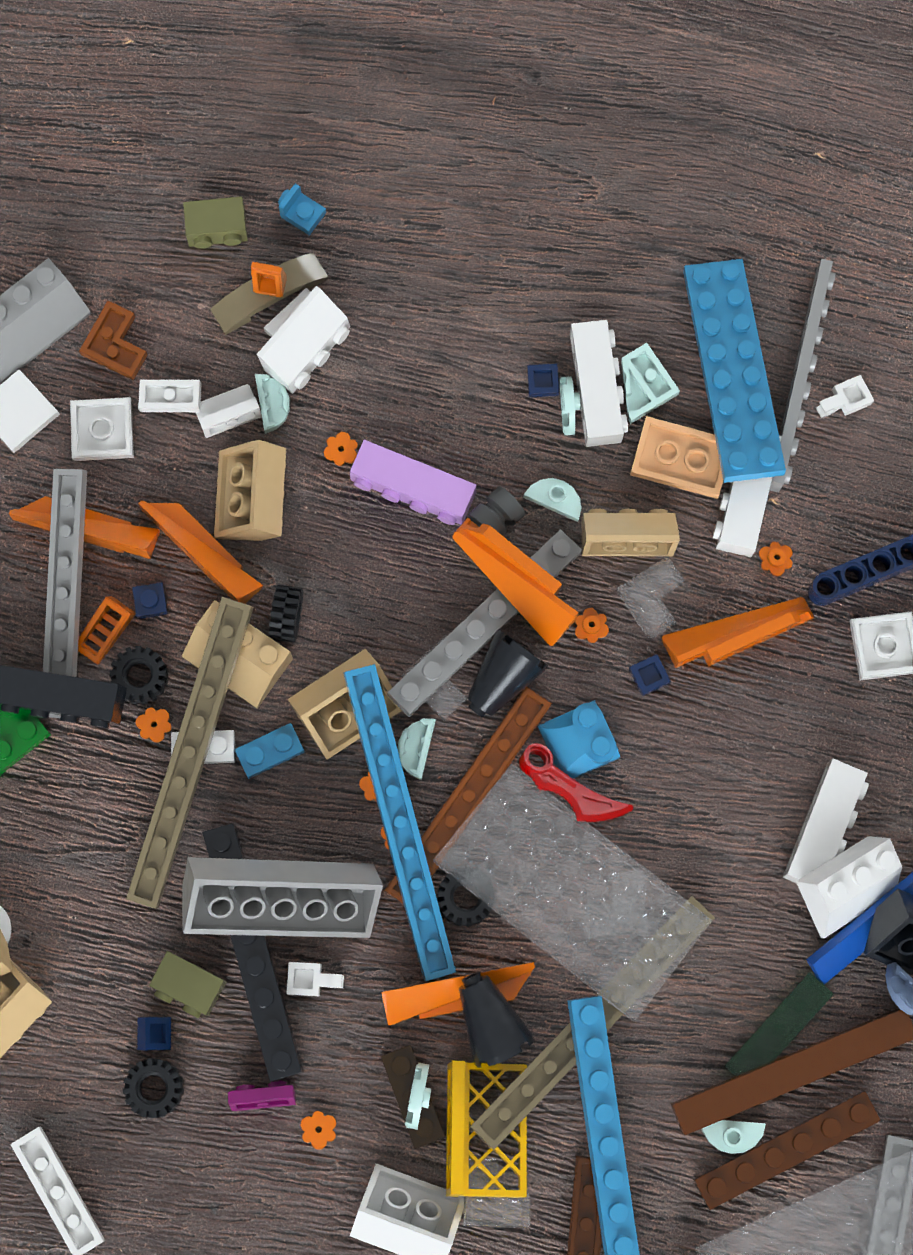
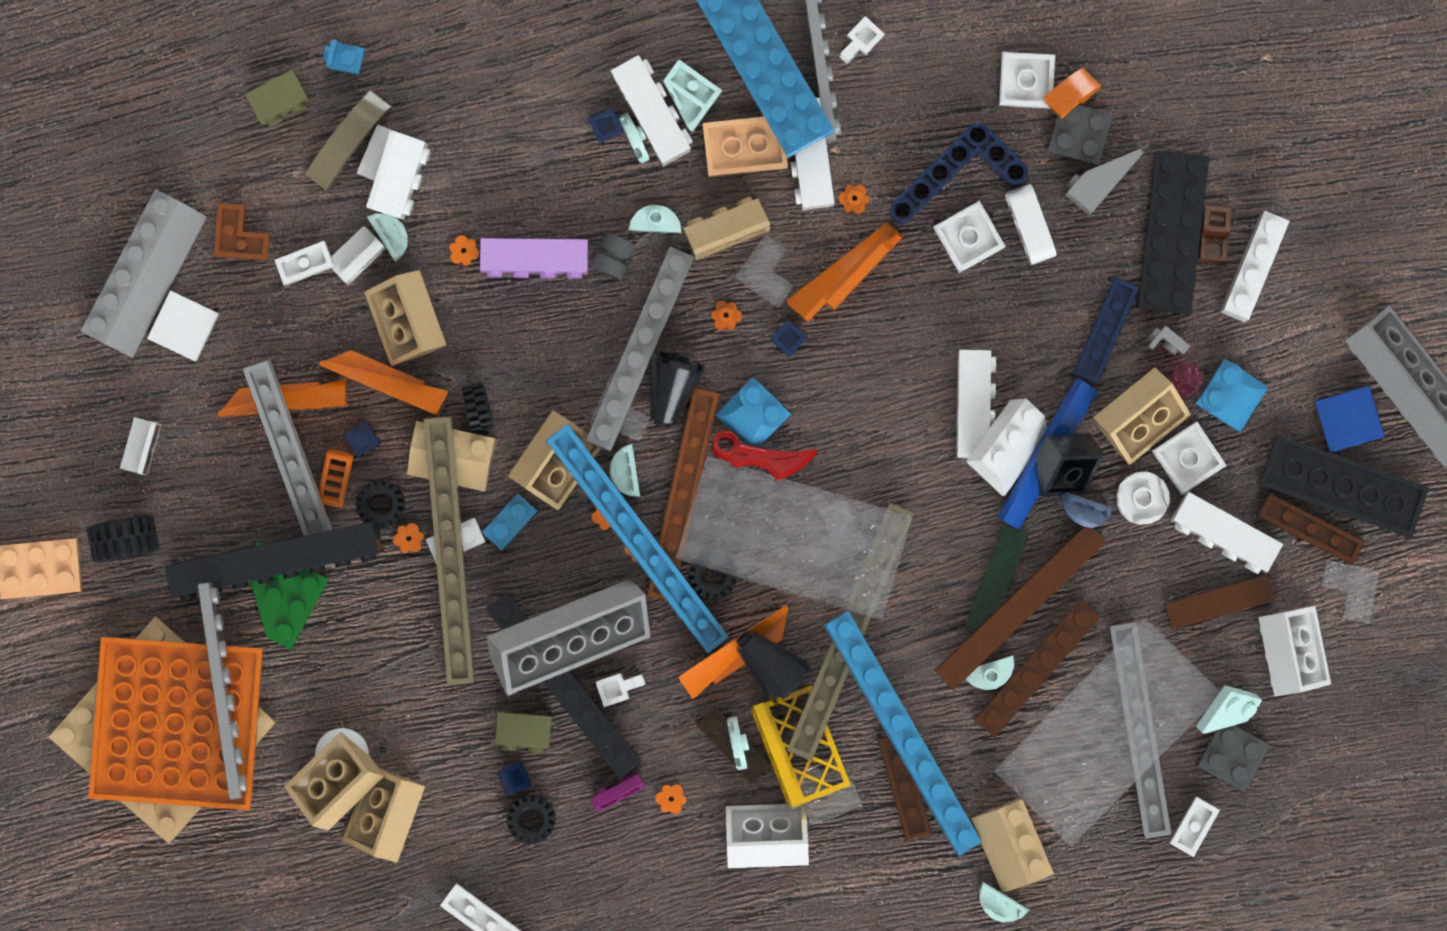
camera: 20 degrees left, 10 degrees up
(101, 429) = (260, 312): white tile -> none
(268, 279) = (346, 135): orange slope -> none
(518, 579) = (653, 305): orange wedge -> none

